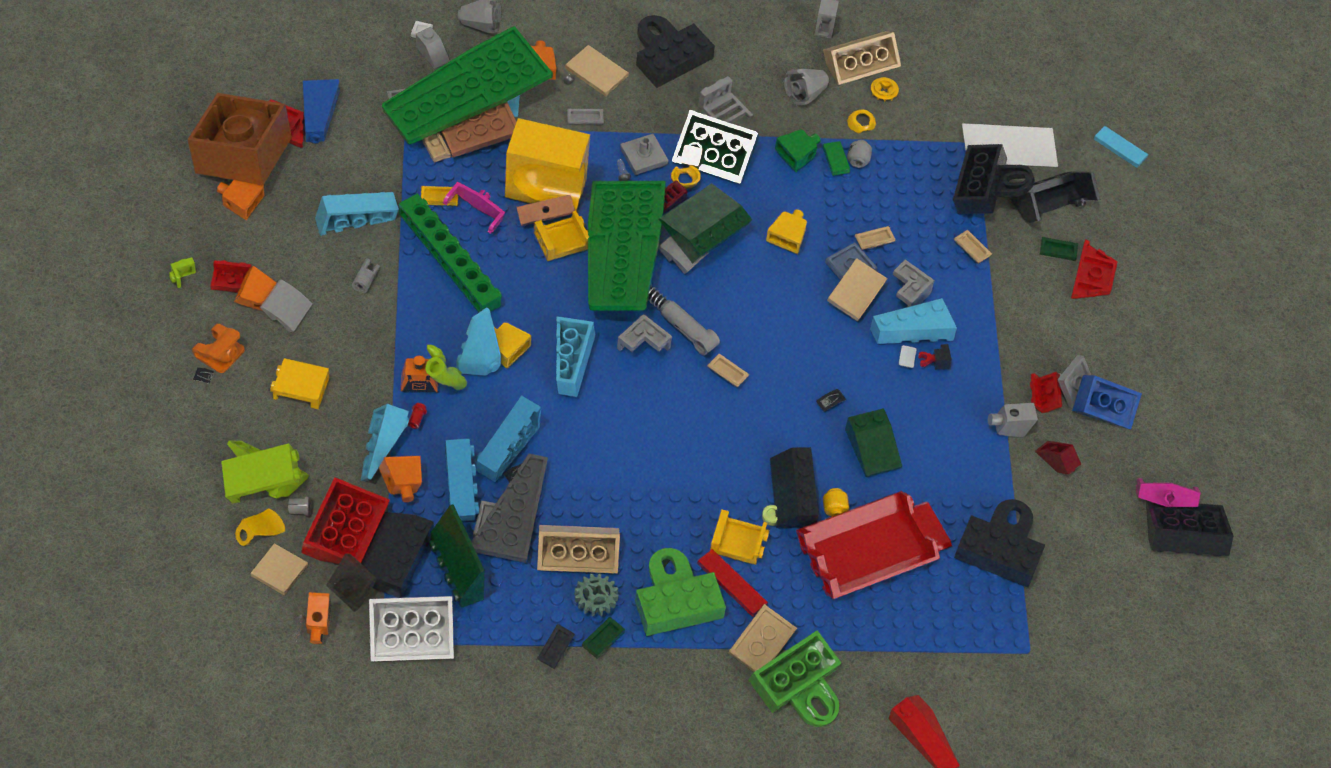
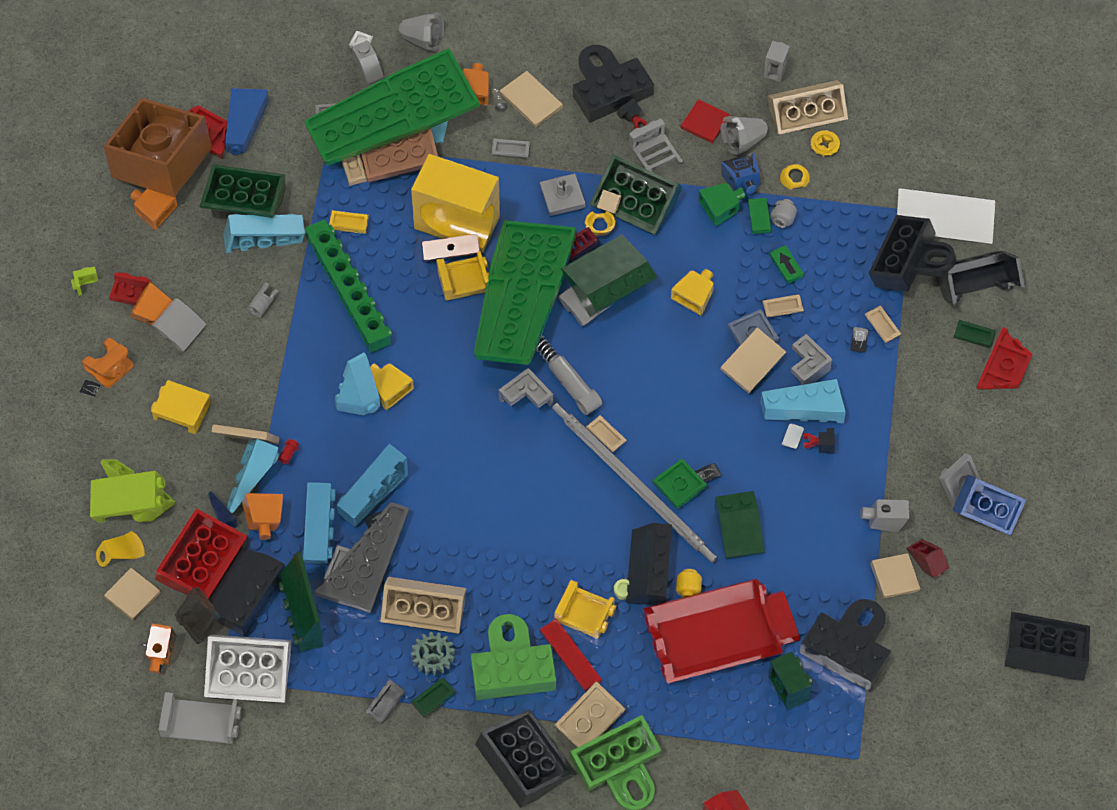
camera: 15 degrees right, 5 degrees up
(300, 506) = (161, 532): light grey bush -> none
(331, 173) = (244, 191): none -> dark green slope
(357, 478) = (222, 512): none -> clear blue slope
(369, 402) = (245, 434): none -> tan tile
(369, 685) = (199, 720): none -> light grey panel
(415, 378) = (297, 411): orange torso -> none
(440, 373) = (310, 409): lime piece -> none
(478, 201) = (386, 231): dark pink piece -> none
(573, 350) = (452, 400): medium azure wedge -> none
(624, 175) = (537, 216): clear piece -> none
(695, 75) = (631, 111): none -> black piece
(704, 686) = (524, 757): none -> black slope
(764, 413) = (638, 486): none -> light grey axle
(766, 78) = (704, 121): none -> red tile
(808, 410) = (679, 484): none -> green tile
(812, 120) = (742, 173): none -> blue torso
(870, 200) = (786, 264): none -> green tile
(953, 263) = (859, 339): none -> black sticker
(953, 583) = (790, 680): none -> dark green brick
(1030, 476) = (895, 576): none -> tan tile
(1046, 392) = (927, 488): red bracket -> none
(1120, 146) = (1063, 227): medium azure tile -> none
(1168, 494) = (1033, 609): dark pink piece -> none

